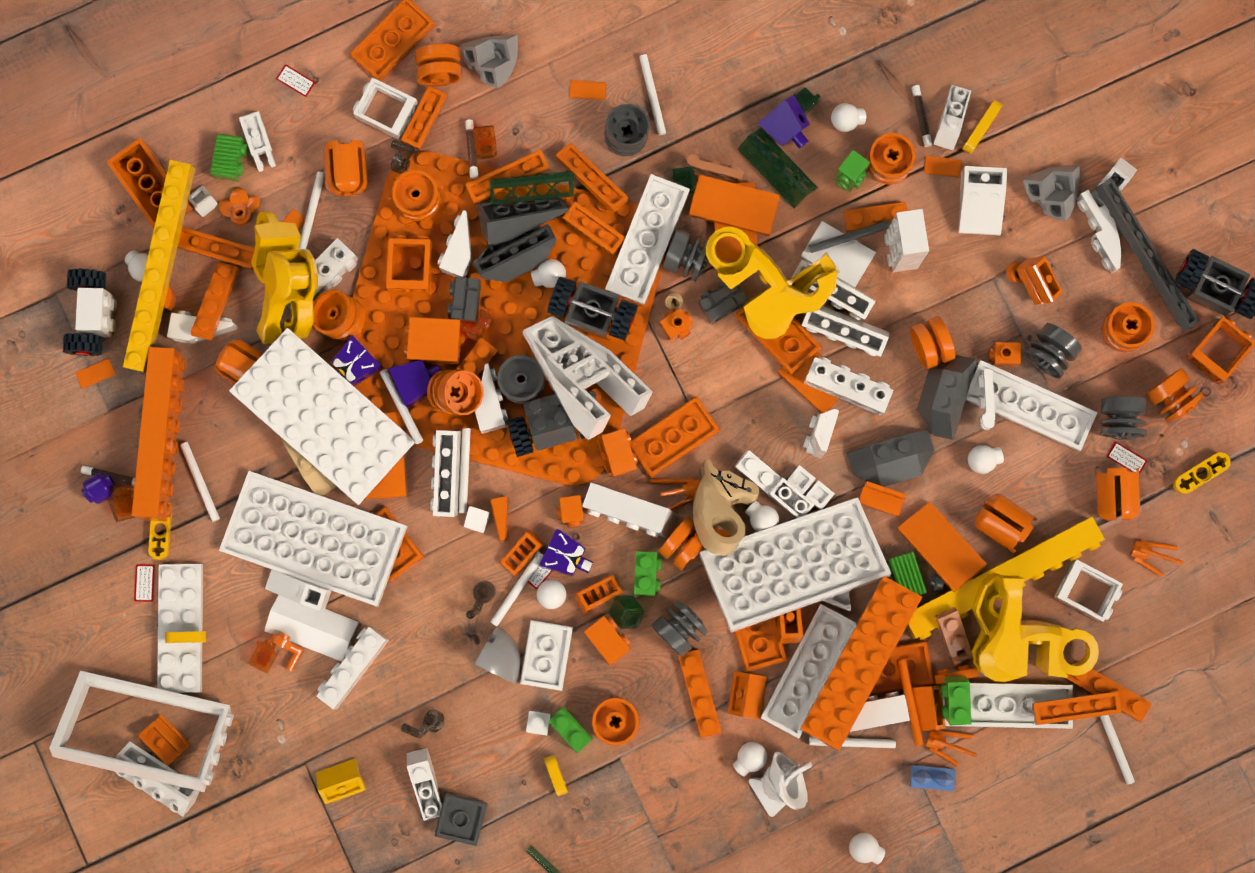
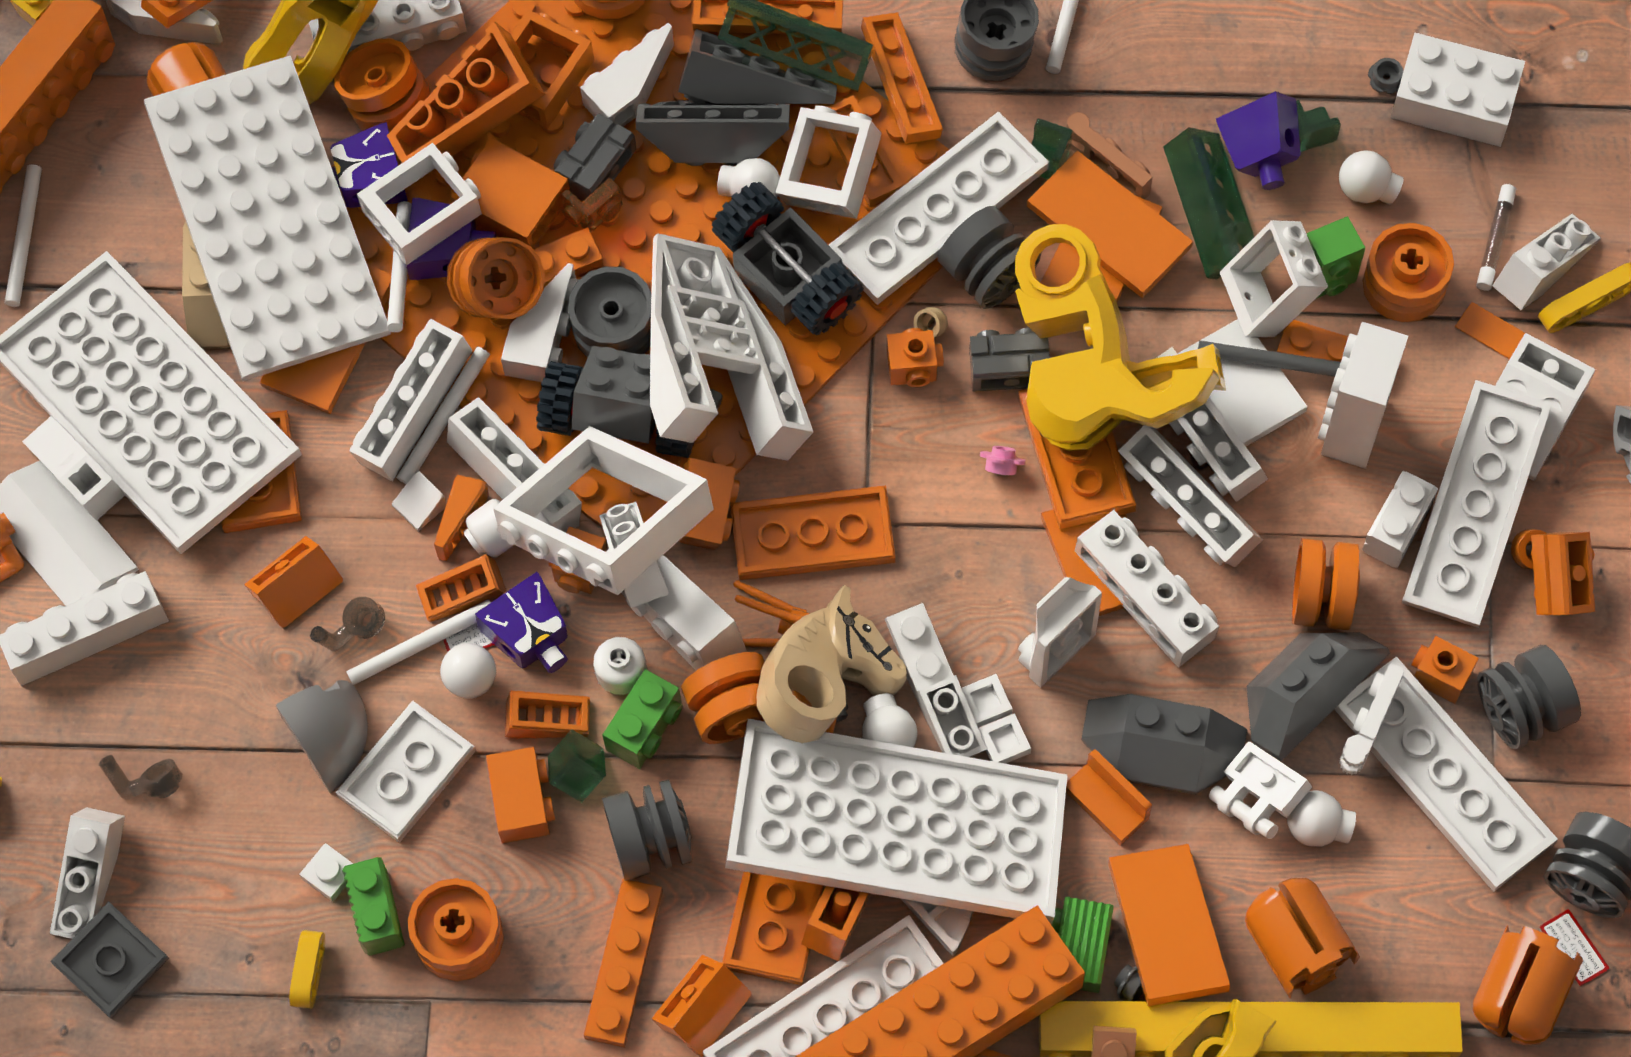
camera: 25 degrees right, 15 degrees down
(391, 301) = (470, 101): none -> orange wedge
(402, 398) = (437, 228): none -> white window
(439, 590) = (294, 581): none -> orange panel
(516, 482) = (504, 460): none -> white brick
(522, 516) = (483, 531): none -> white head
(579, 456) = (686, 505): none -> white window
(600, 498) = (618, 525): none -> white slope
(601, 243) = (822, 199): none -> white window
(615, 559) = (619, 664): none -> white head
(746, 355) = (1002, 460): none -> bright pink plate
(813, 201) = (1243, 278): none -> white window
(832, 55) = (1387, 67): none -> dark grey plate
(867, 46) = (1458, 89): none -> white brick
(948, 289) = (1399, 519): none -> white brick
(951, 453) = (1266, 779): none -> white plate
(982, 264) = (1476, 503): none -> white plate

